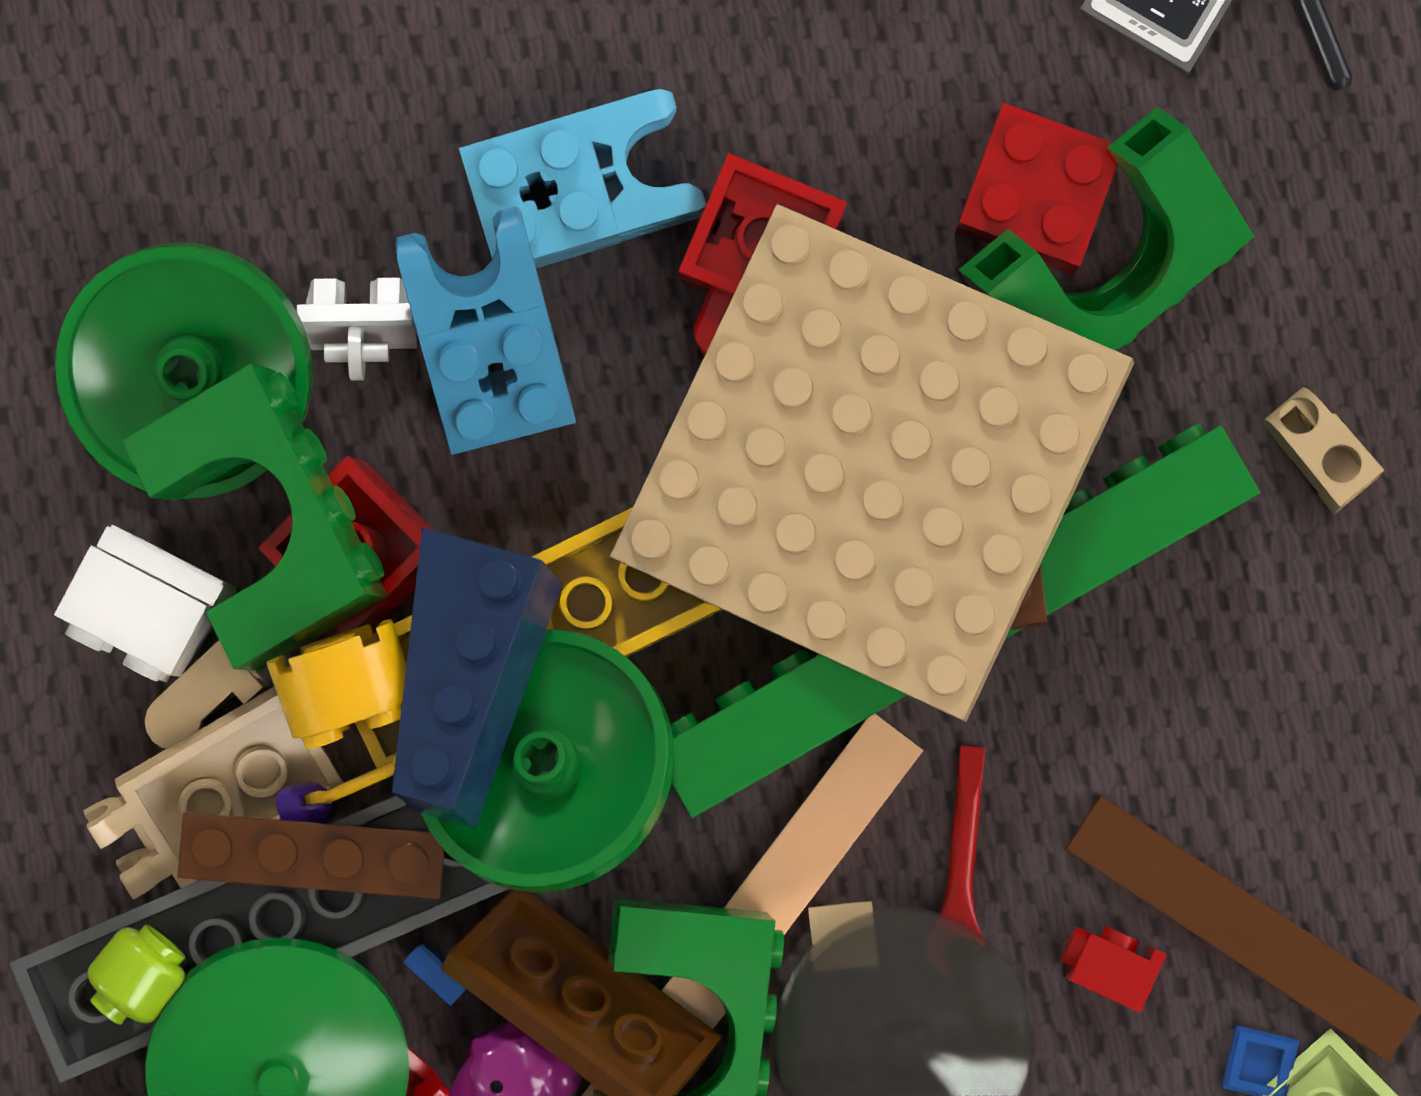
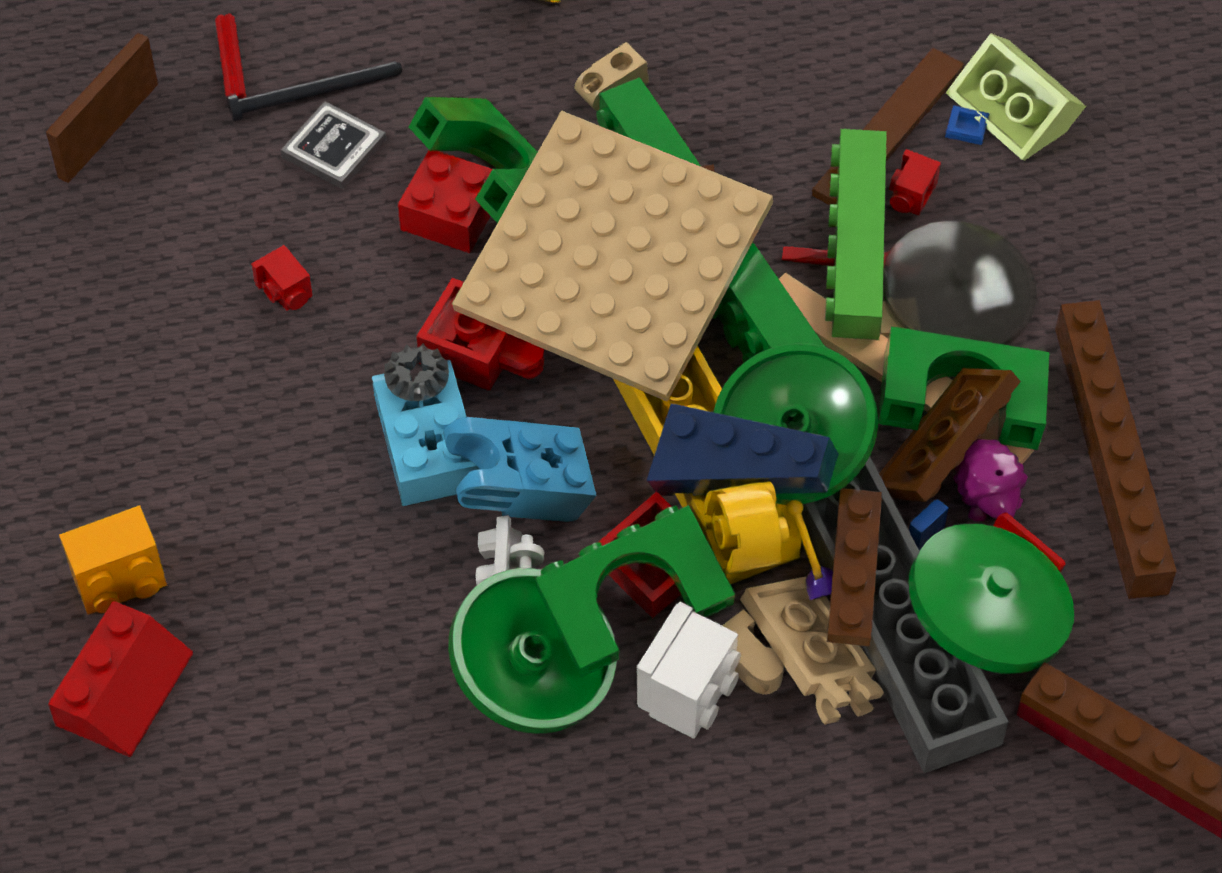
camera: 85 degrees left, 30 degrees down
(136, 975) = (935, 662): lime head -> none
(677, 180) = (426, 384): none -> dark grey gear
(990, 871) = (858, 234): none -> bright green brick

